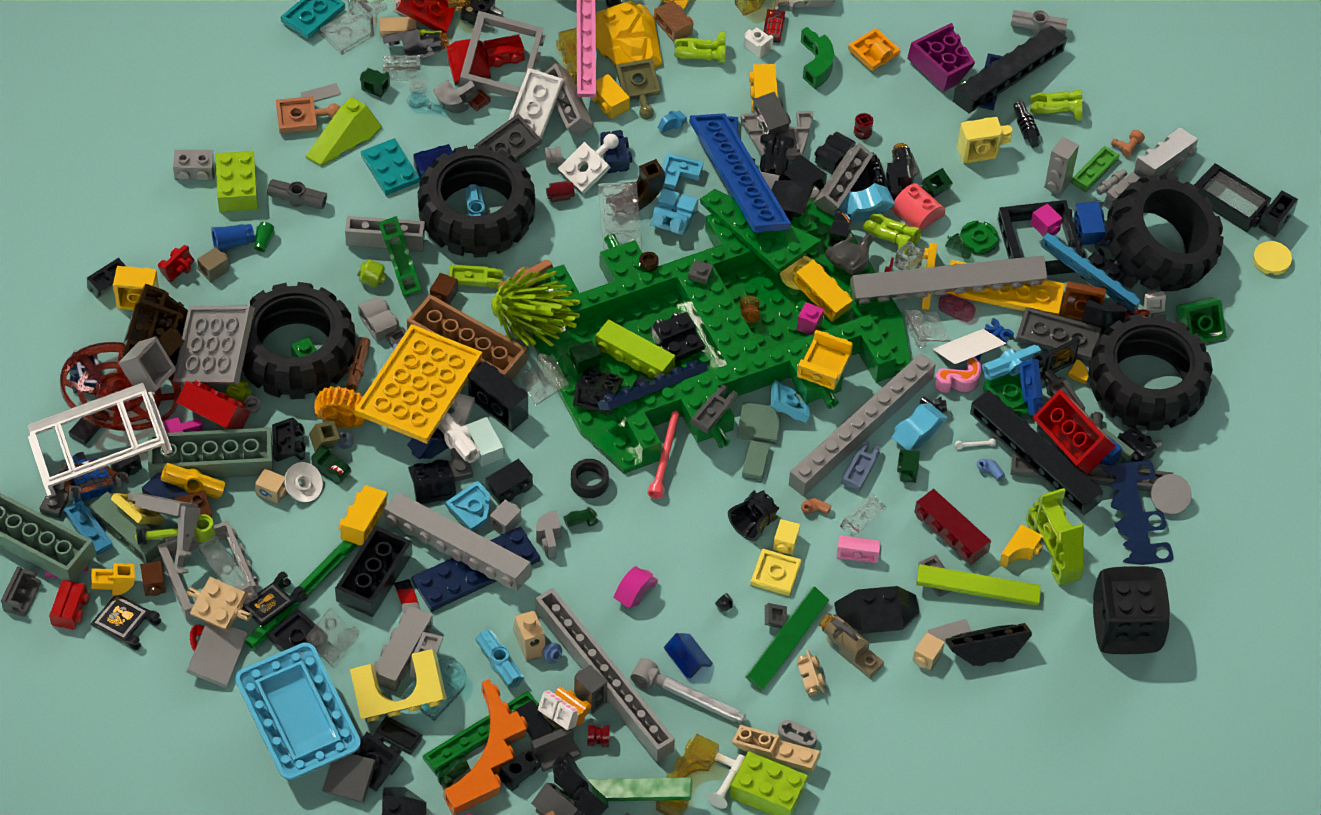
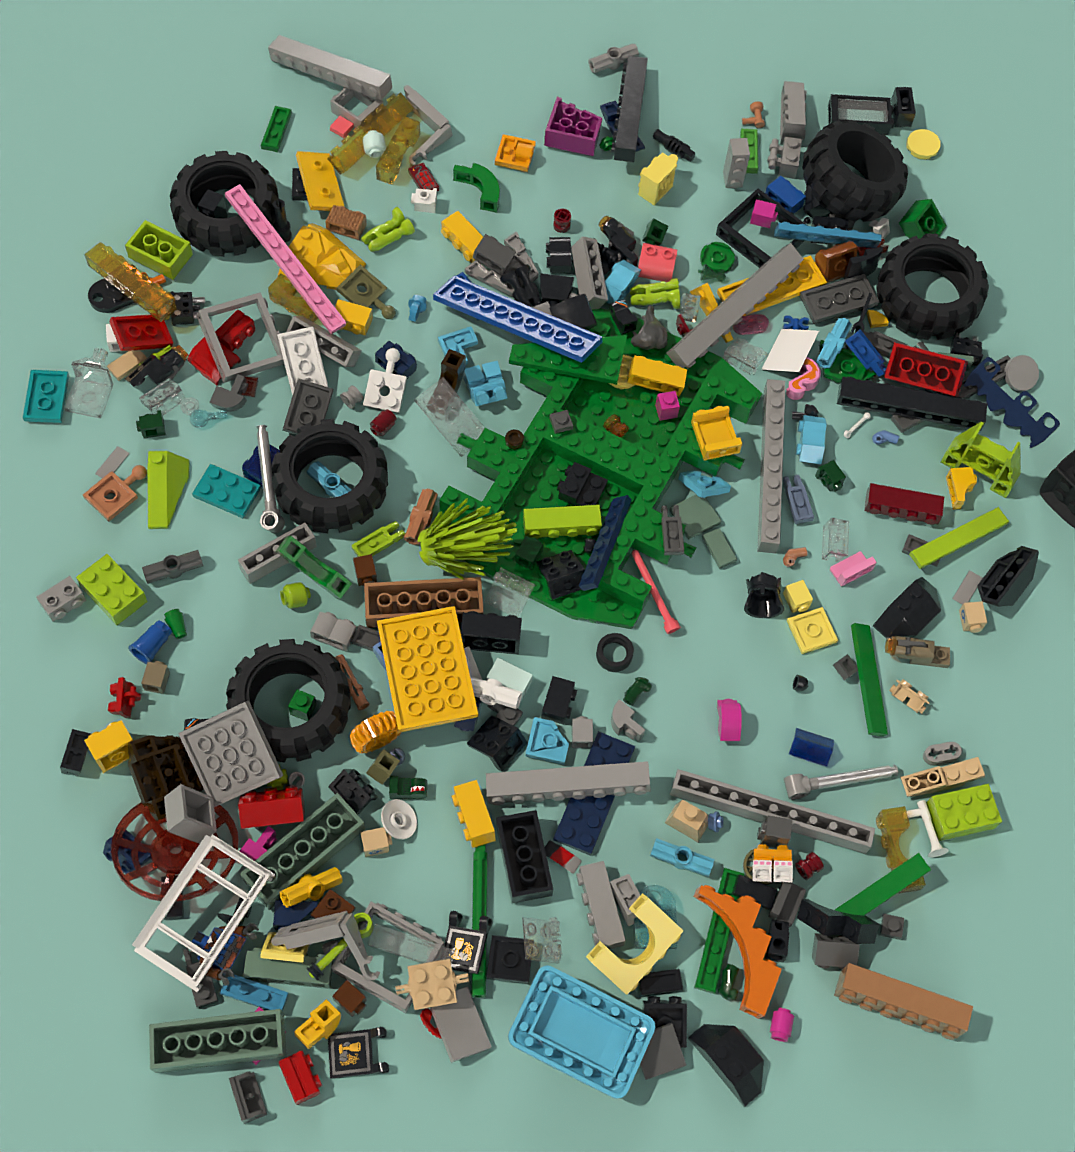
camera: 40 degrees left, 10 degrees up
(171, 341) = (188, 776): dark brown brick -> none
(404, 205) = (269, 495): none -> flat silver piece
(1057, 102) = (689, 109): lime piece -> none

